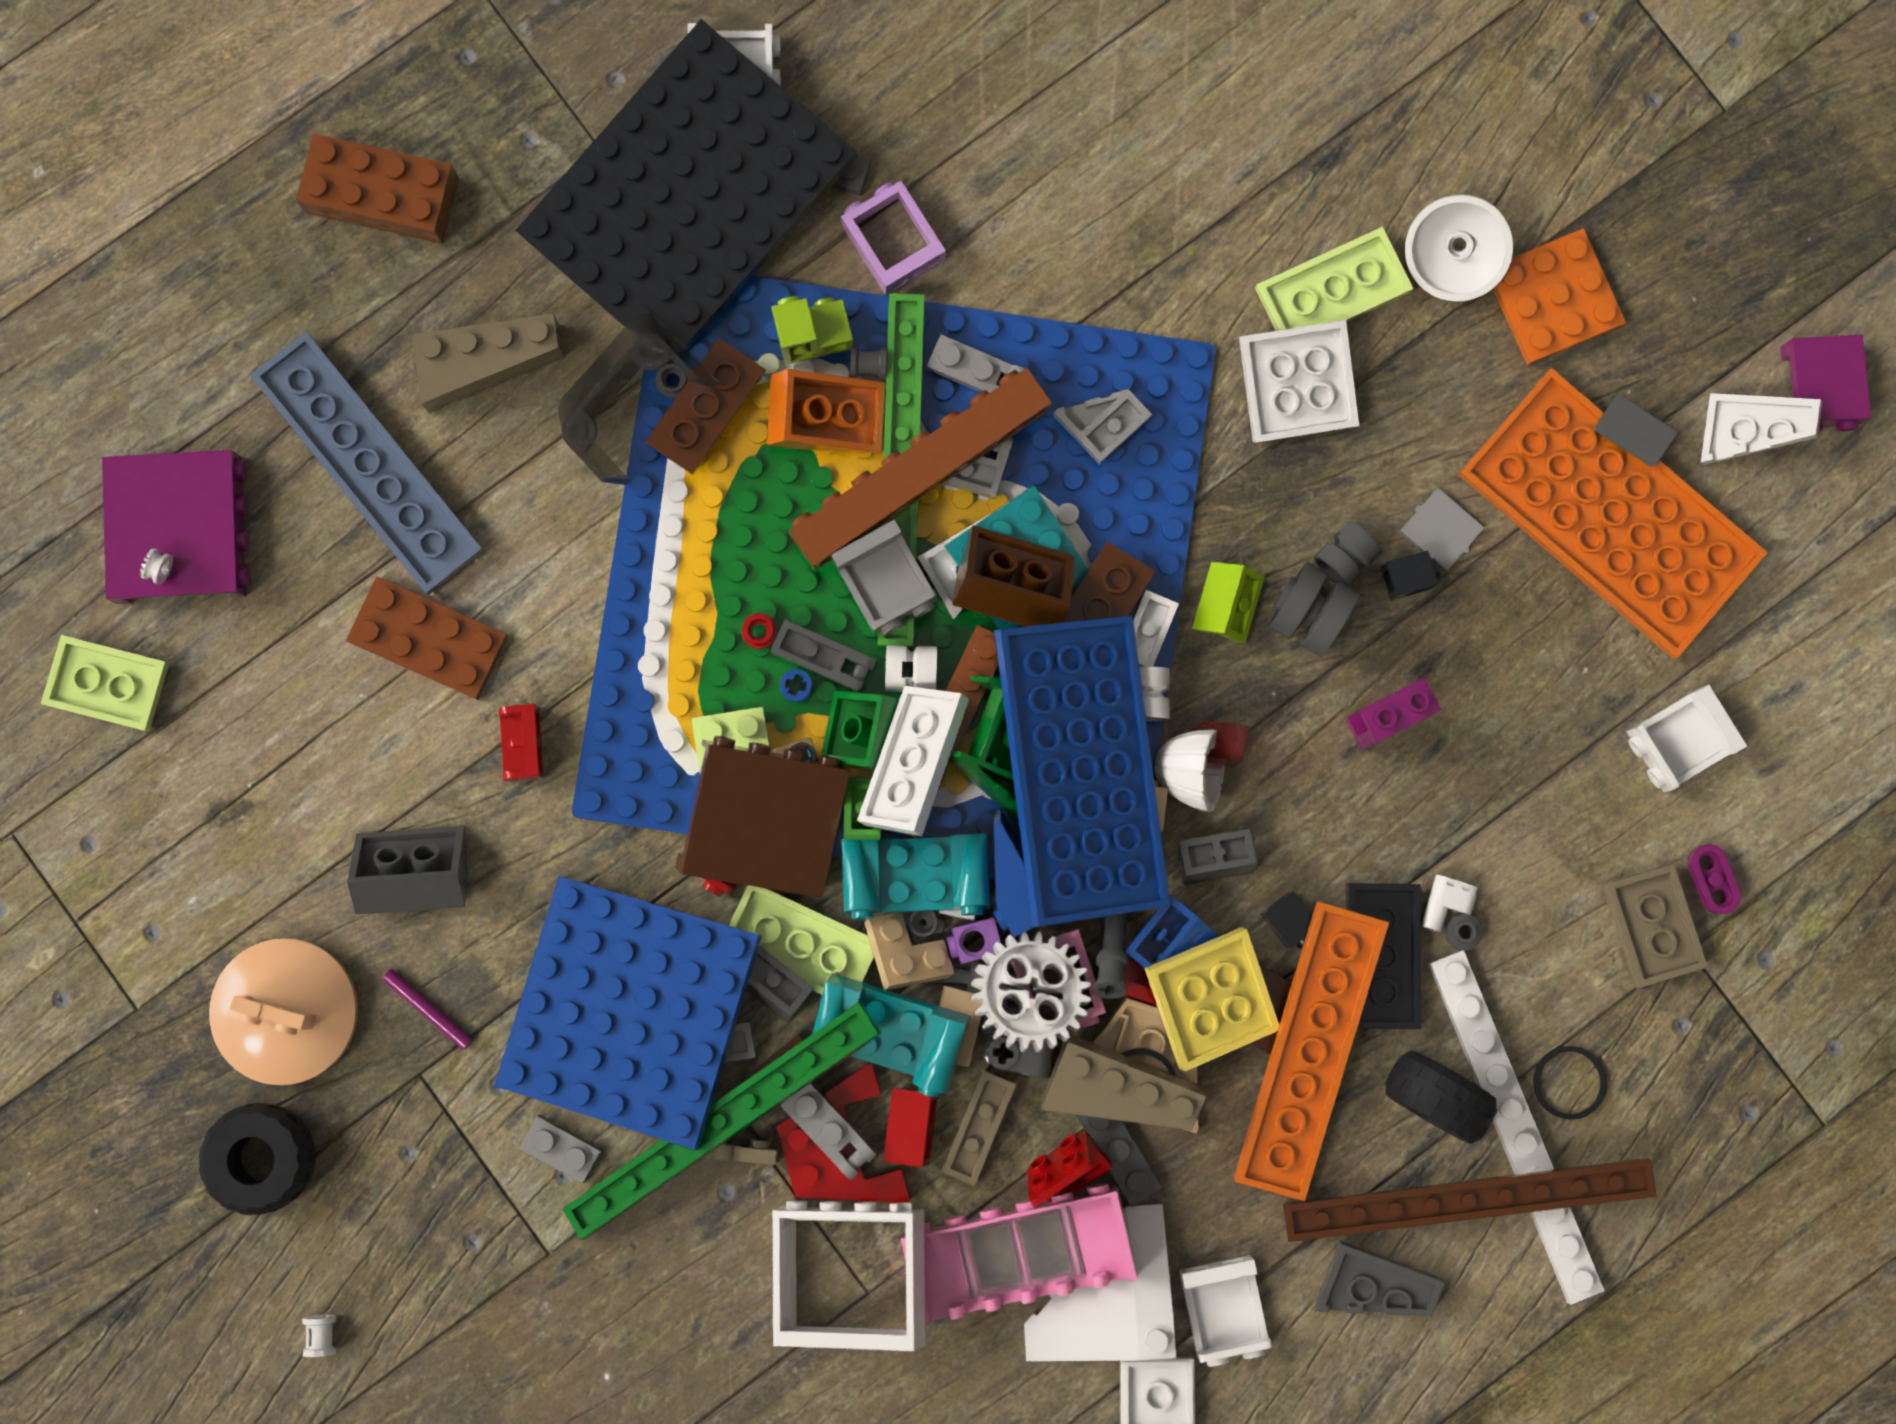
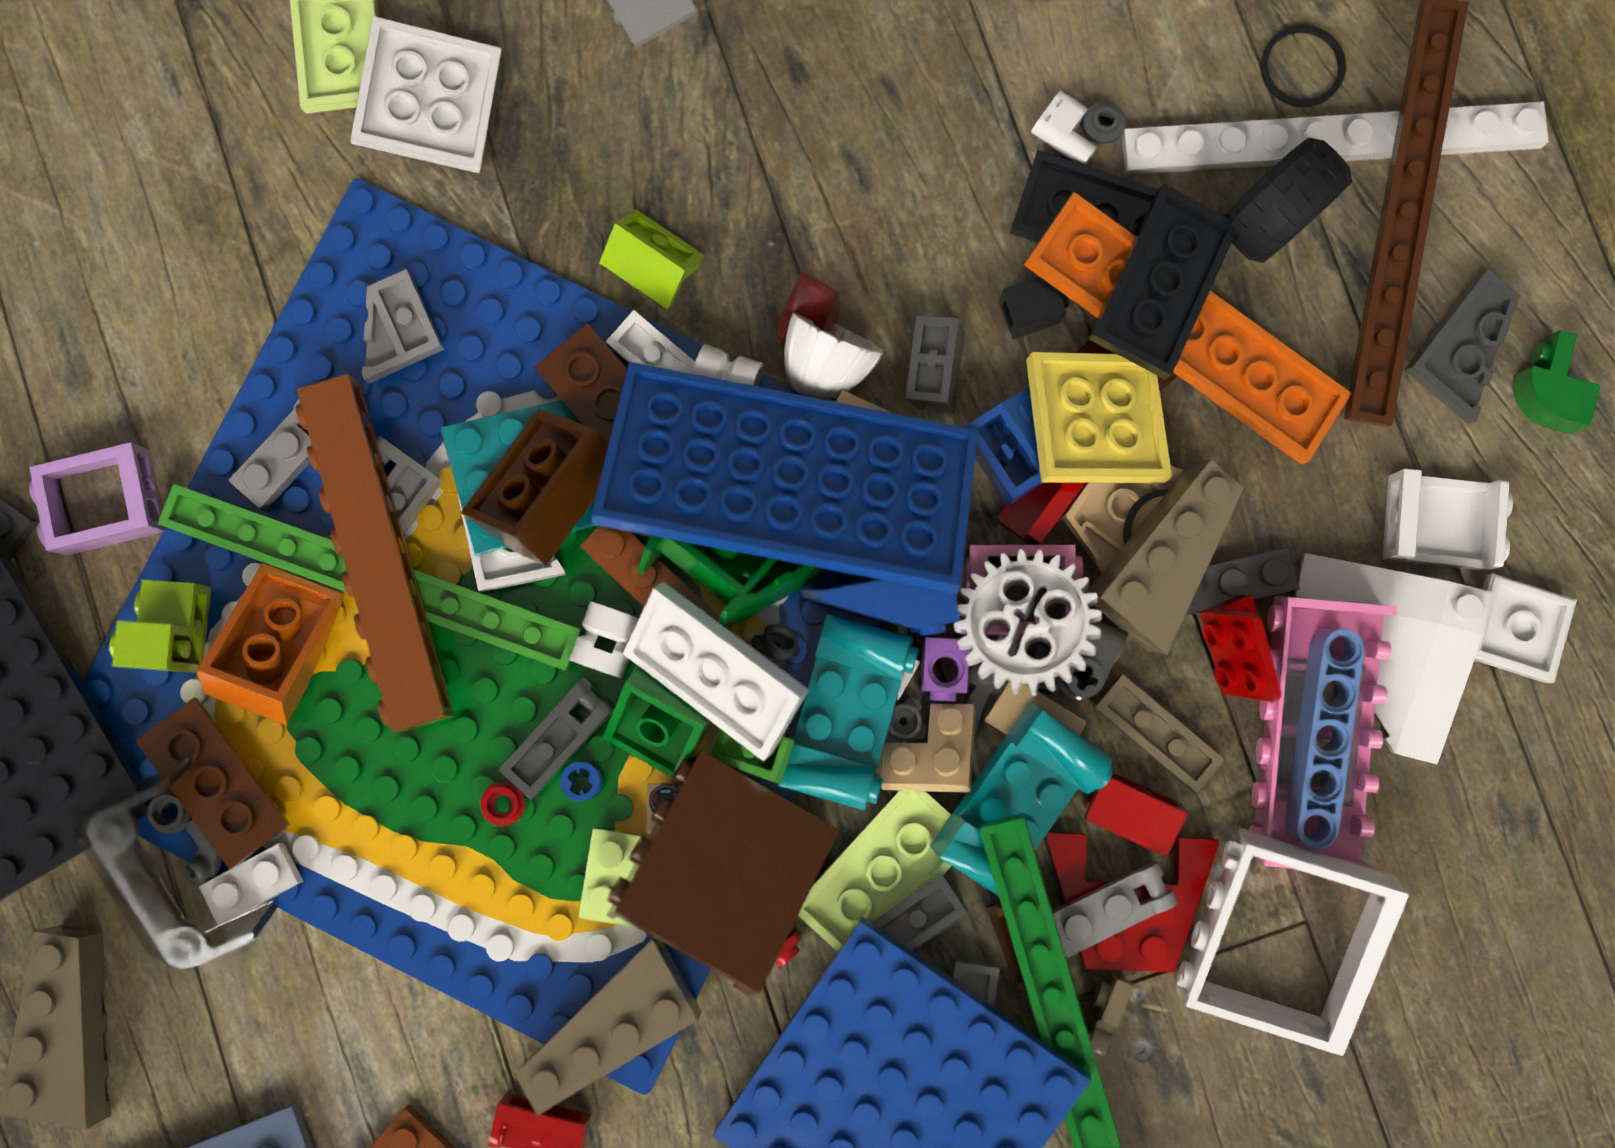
camera: 60 degrees left, 0 degrees up
(624, 776) = (621, 1021): none -> dark tan wedge
(637, 459) = (251, 884): none -> white plate
(648, 419) = (206, 861): none -> dark grey arm
(868, 363) = (231, 574): dark grey bush -> none
(884, 579) = (488, 637): light grey panel -> none
(950, 802) = (777, 644): none -> dark grey plate
(1001, 1265) = (1334, 756): none -> medium blue beam
(1112, 959) = (1019, 517): dark grey pin -> none
(1306, 605) = (701, 154): dark grey wheel -> none
(1338, 1016) = (1164, 282): none -> black plate
(1351, 550) = (644, 113): dark grey wheel -> none
(1356, 1365) = (1548, 393): none -> green brick
(1393, 714) = (840, 111): magenta panel -> none
(1410, 575) = (688, 48): black brick -> none

